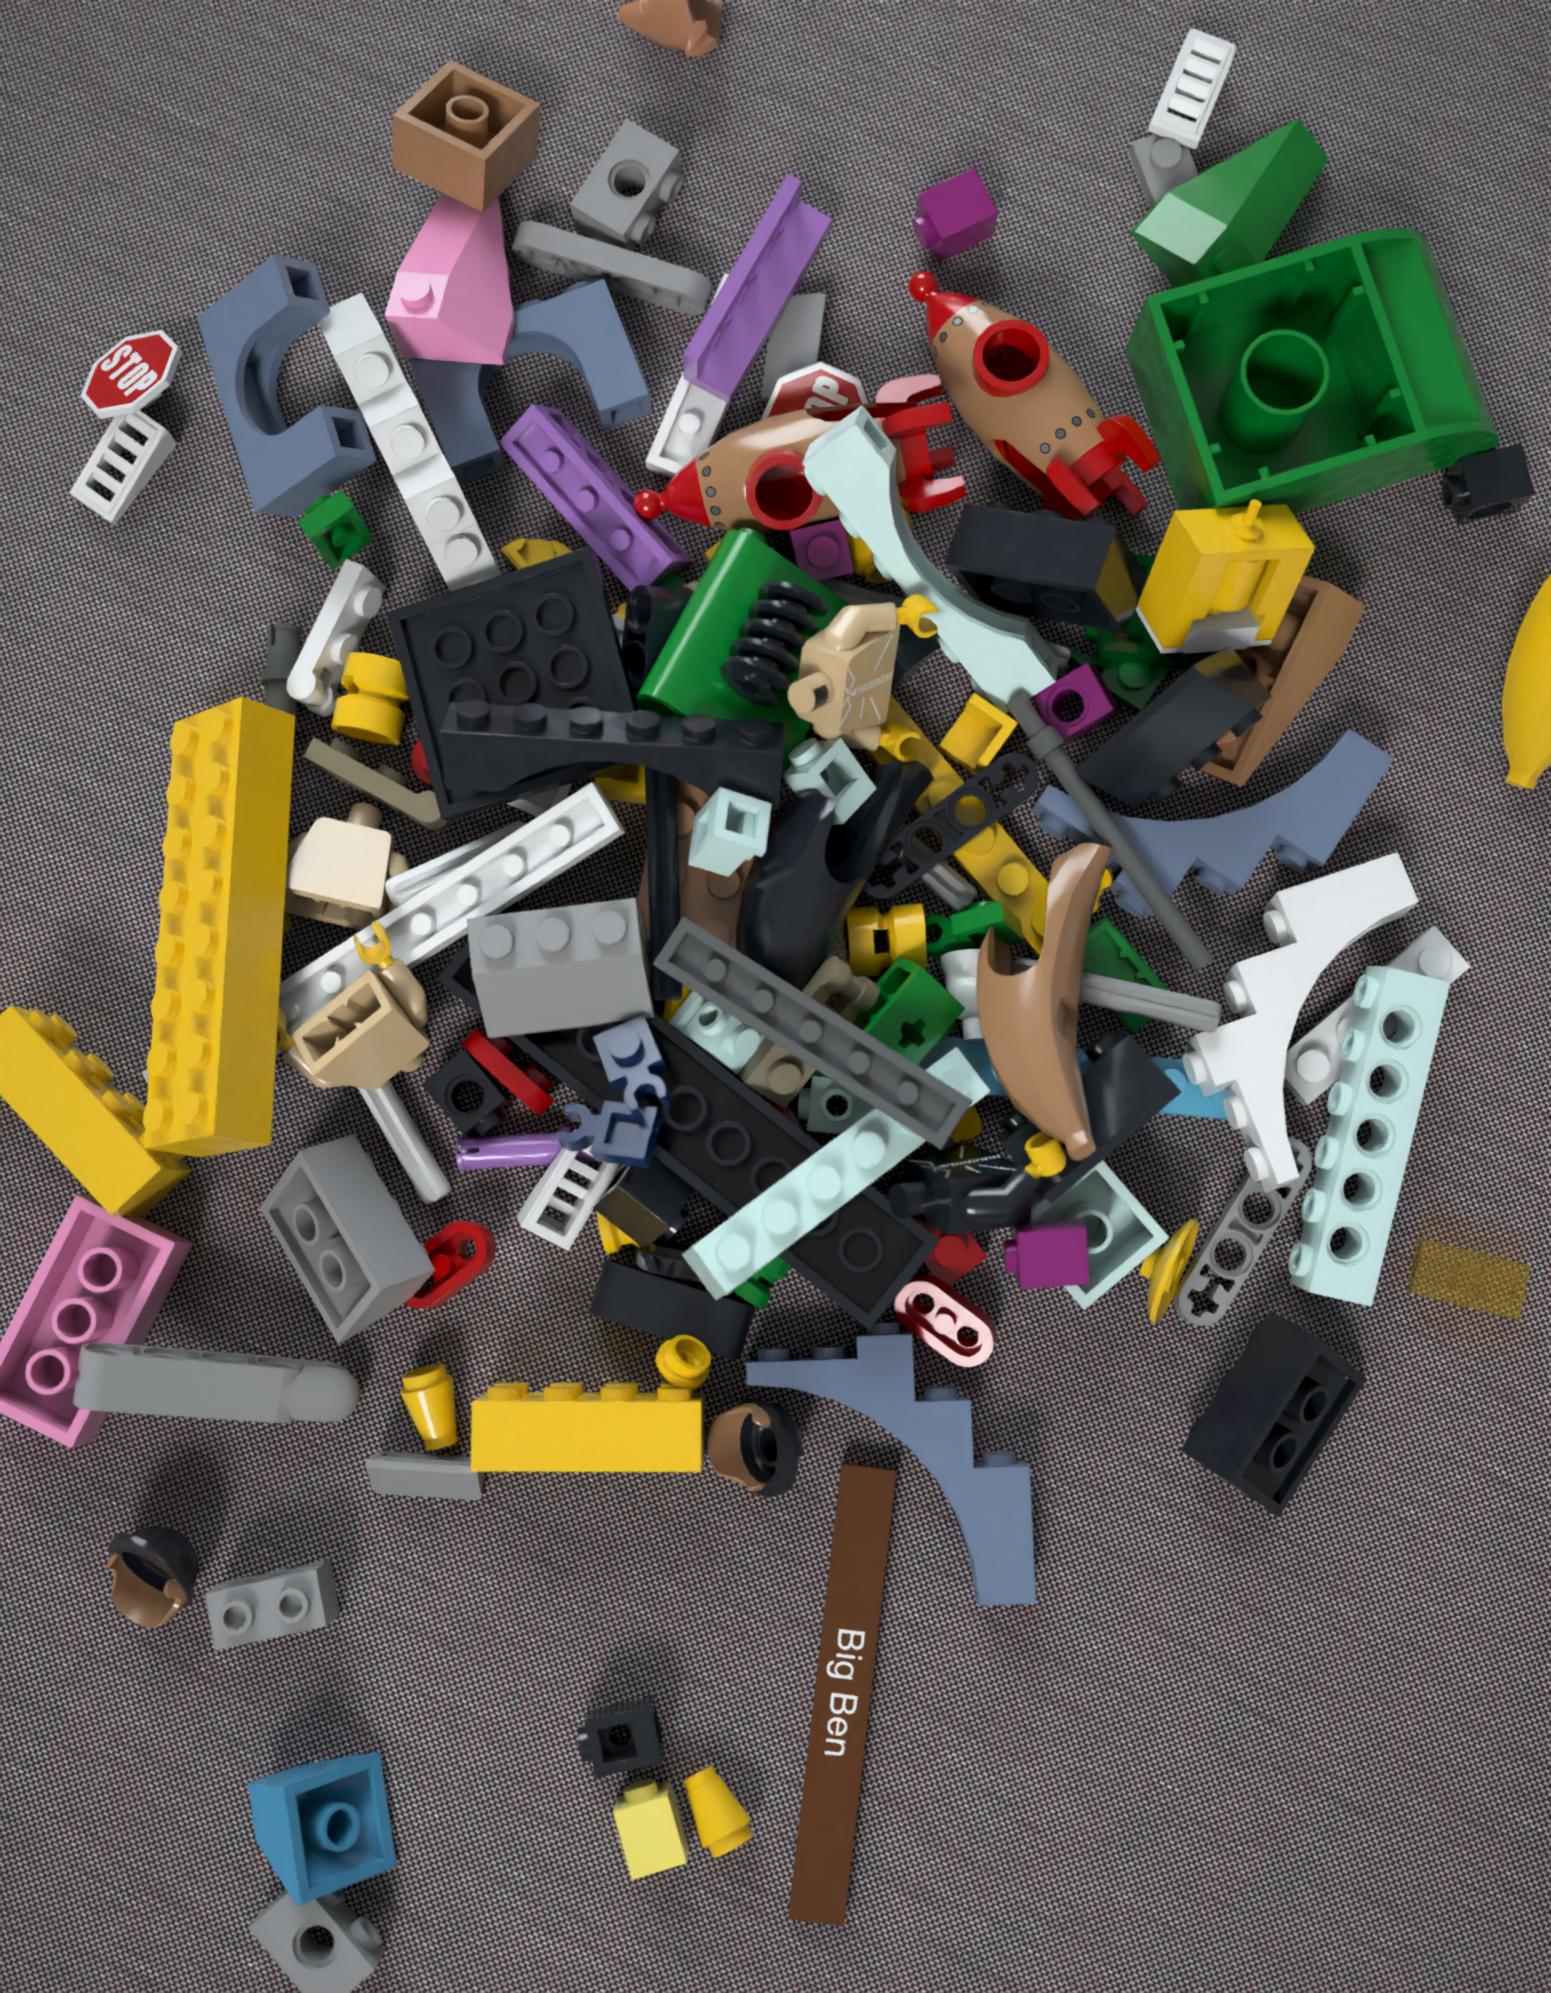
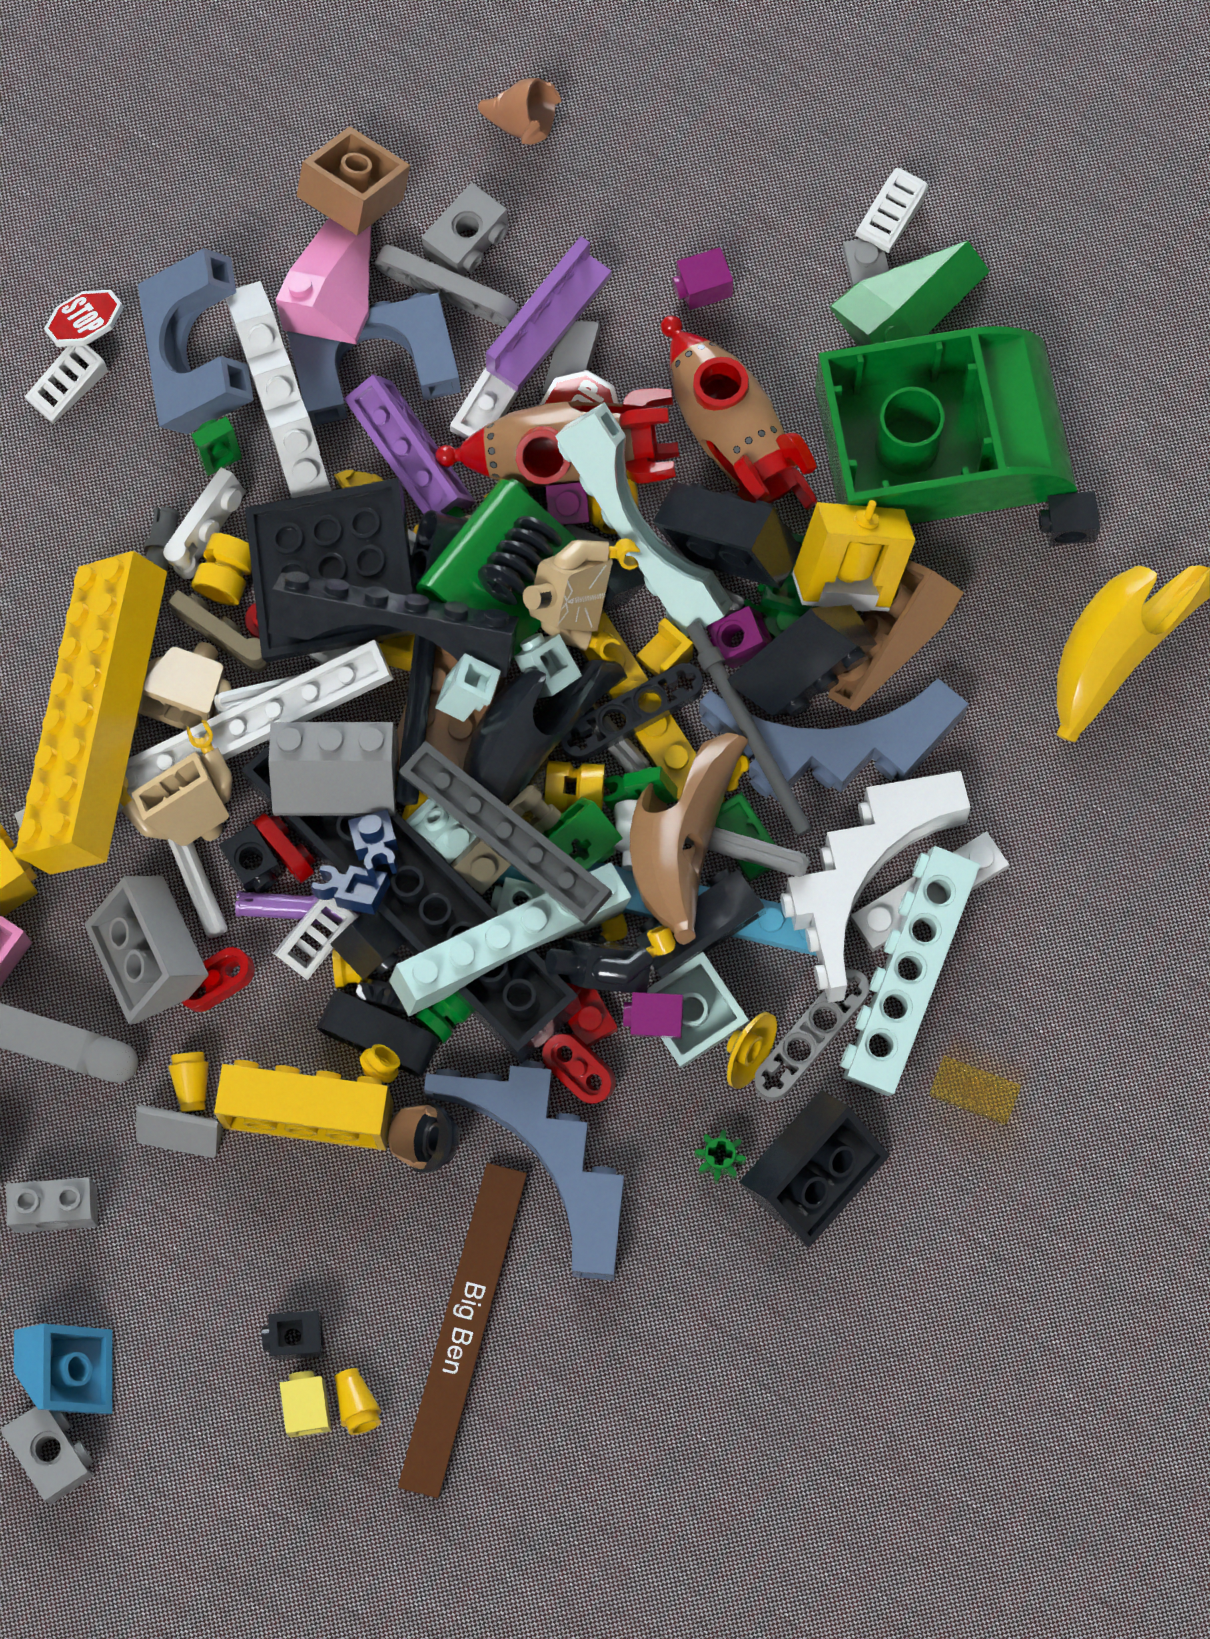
camera: 10 degrees right, 10 degrees down
(1159, 1427) = (711, 1149): none -> green gear

